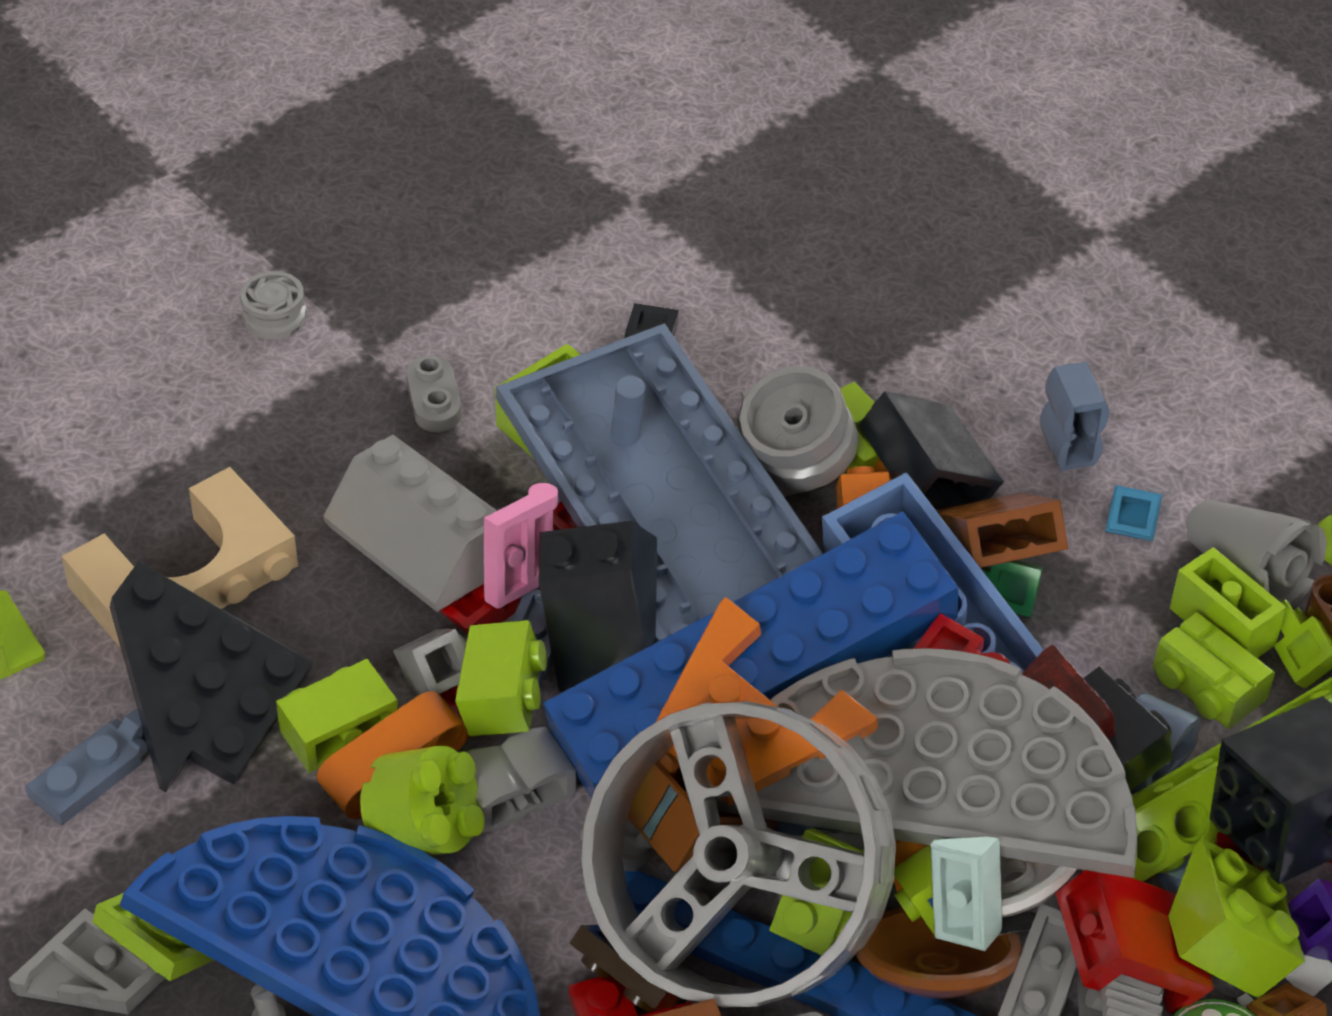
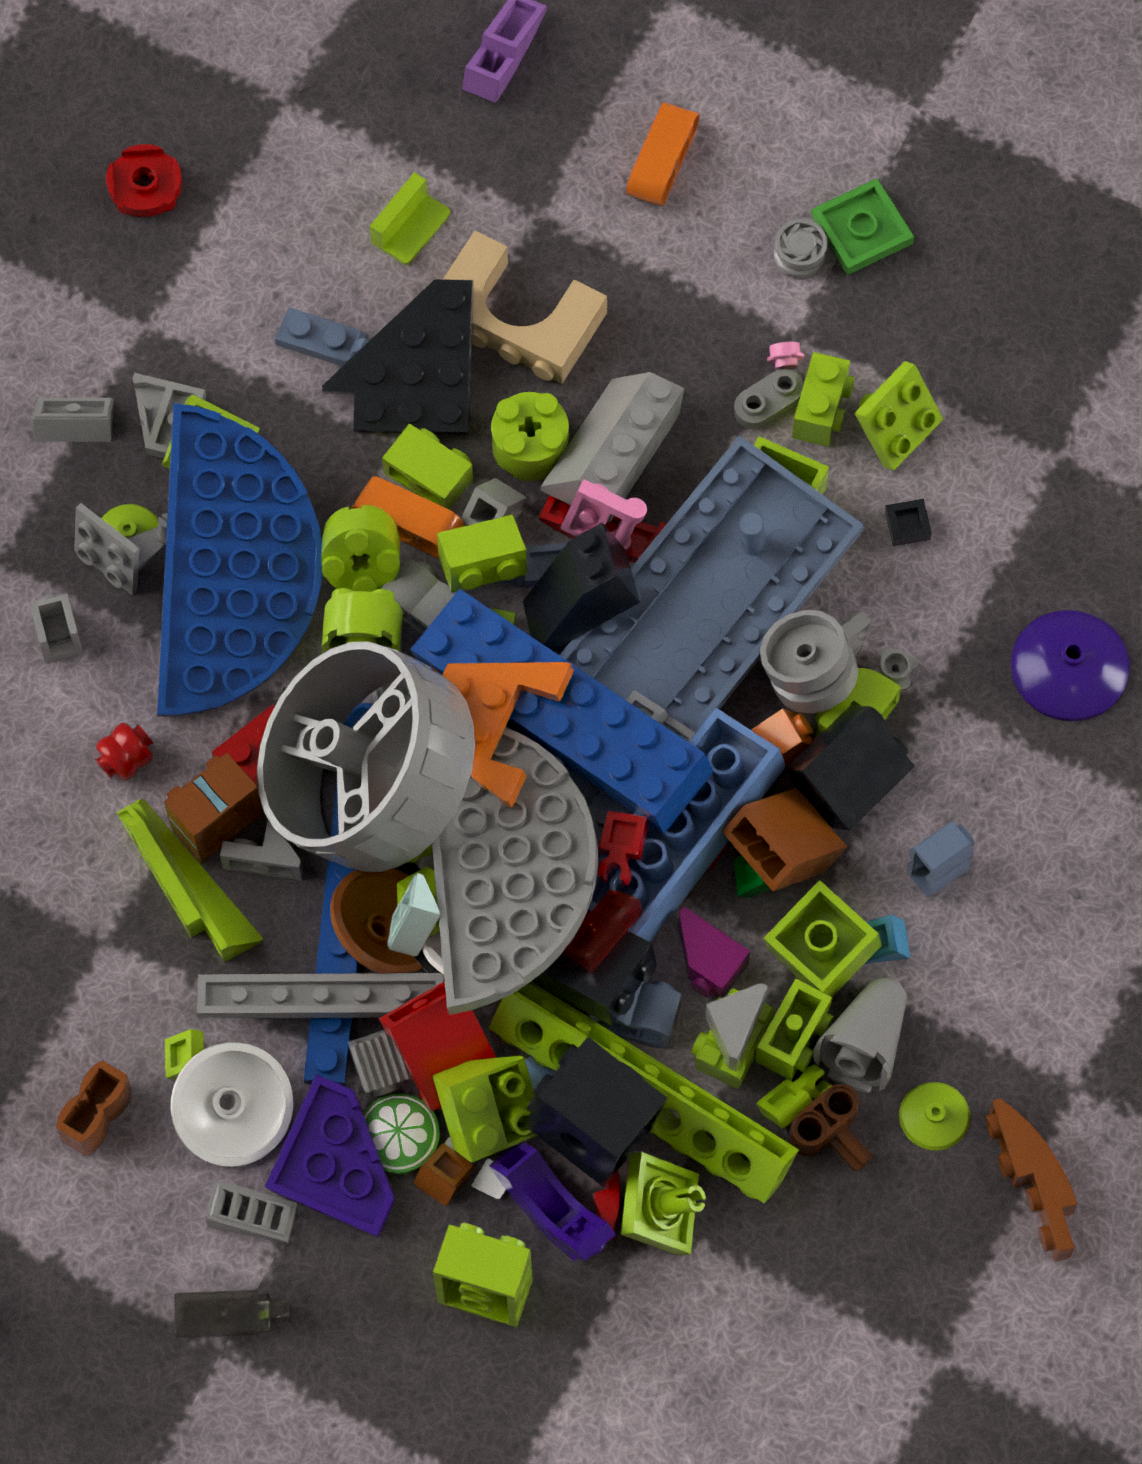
camera: 70 degrees right, 20 degrees up
(77, 375) = (662, 153): none -> orange beam
(281, 243) = (862, 226): none -> bright green plate
(357, 600) = (527, 416): none -> lime brick
(392, 359) = (785, 355): none -> bright pink plate
(470, 340) = (821, 399): none -> lime brick
(525, 841) = (362, 618): none -> lime brick
(529, 285) = (898, 415): none -> lime plate
(877, 269) = (1067, 686): none -> dark purple dish
(1114, 646) = (710, 956): none -> magenta slope
(1129, 544) = (822, 940): none -> lime brick
(1220, 638) = (734, 1020): none -> light grey slope

